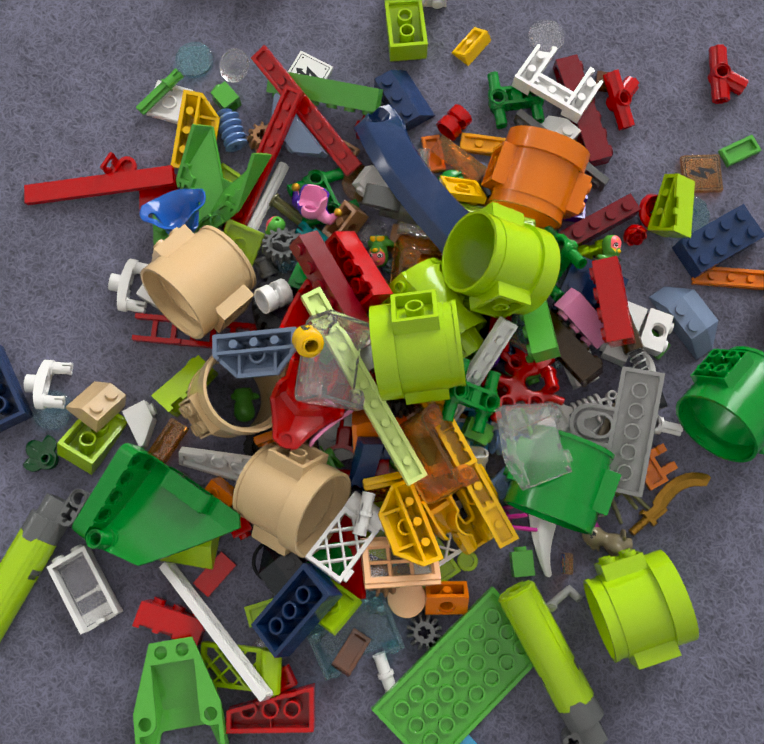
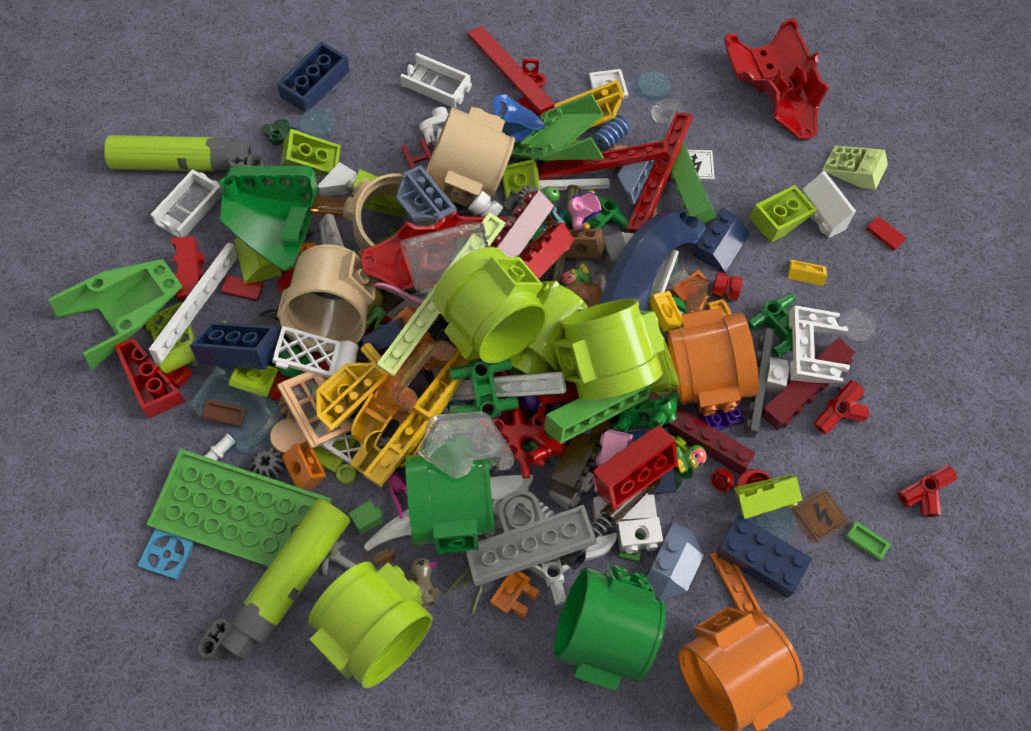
camera: 60 degrees right, 15 degrees down
(40, 384) = (331, 103): white connector -> none
(70, 265) = (436, 81): none -> white door
(97, 404) = (335, 146): tan slope -> none
(160, 91) = (618, 74): bright green axle -> none
(225, 97) = (636, 117): bright green brick -> none
(307, 341) = (448, 218): yellow head -> none
(364, 513) = (340, 354): white pin -> none
(665, 495) = (493, 621): pearl gold sword -> none

